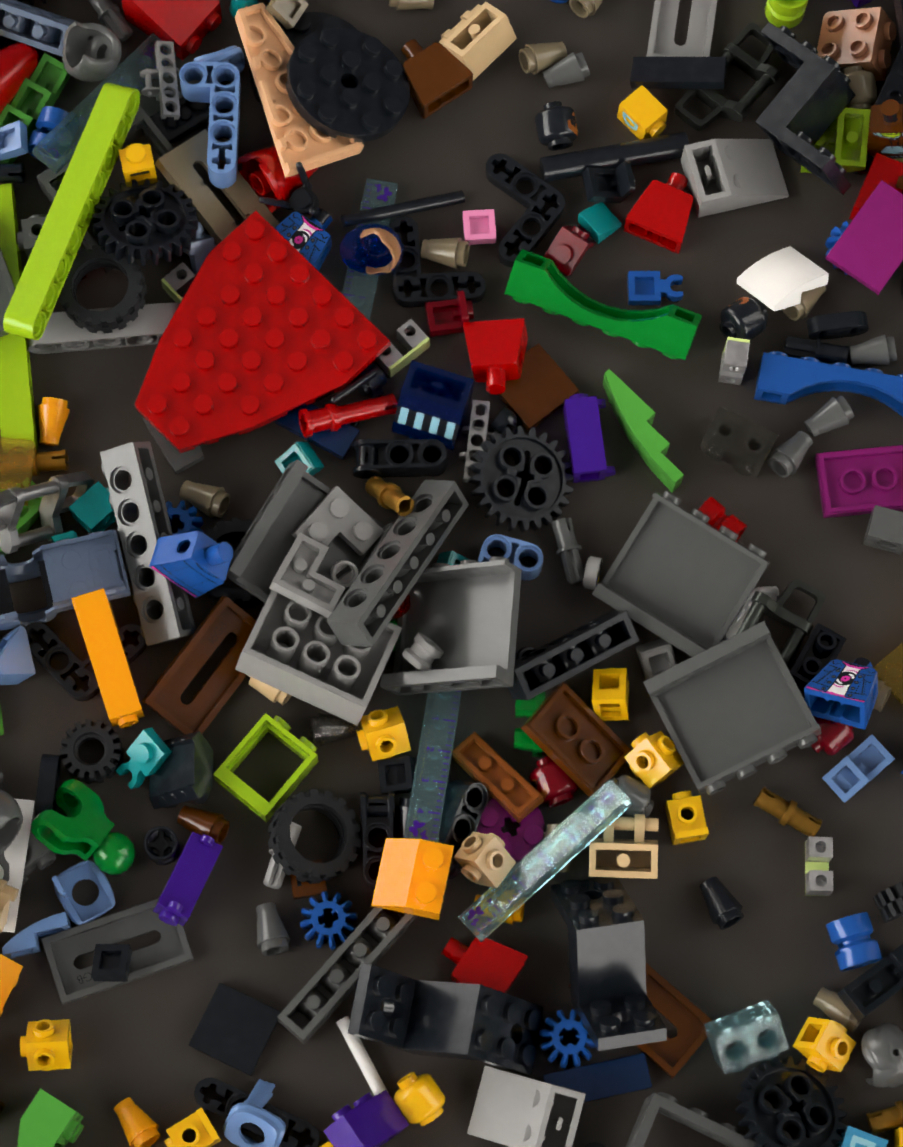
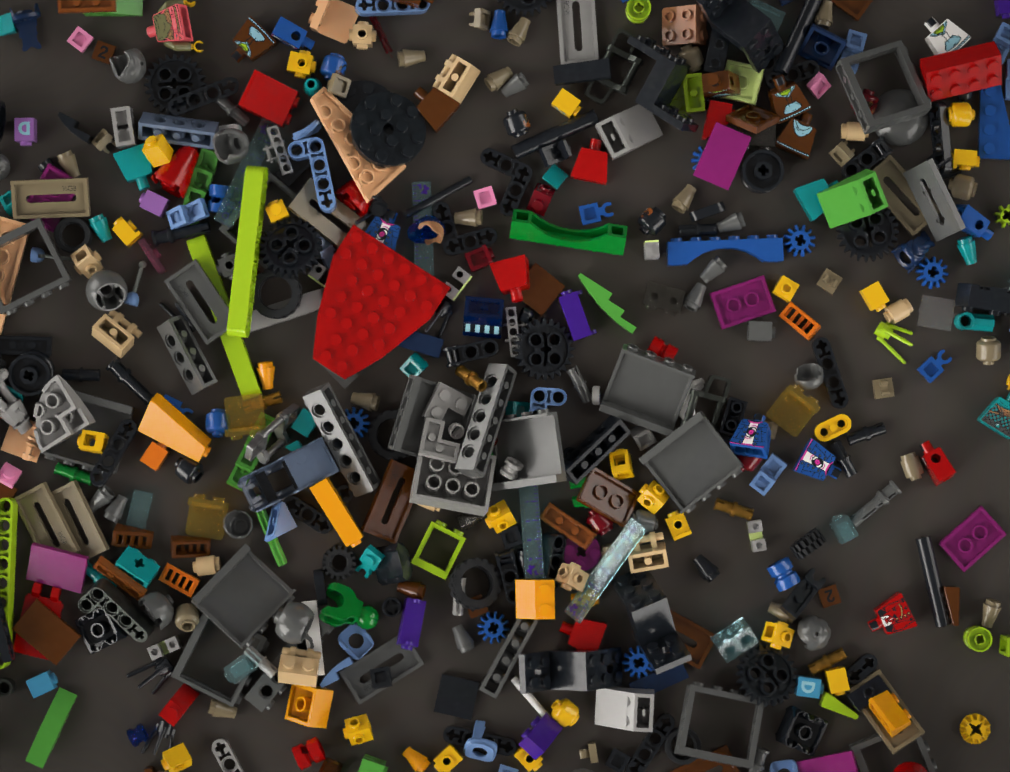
camera: 10 degrees left, 15 degrees up
(192, 561) = (377, 449): blue torso -> none
(333, 416) = (427, 339): red pin -> none
(782, 278) = (669, 192): white slope -> none

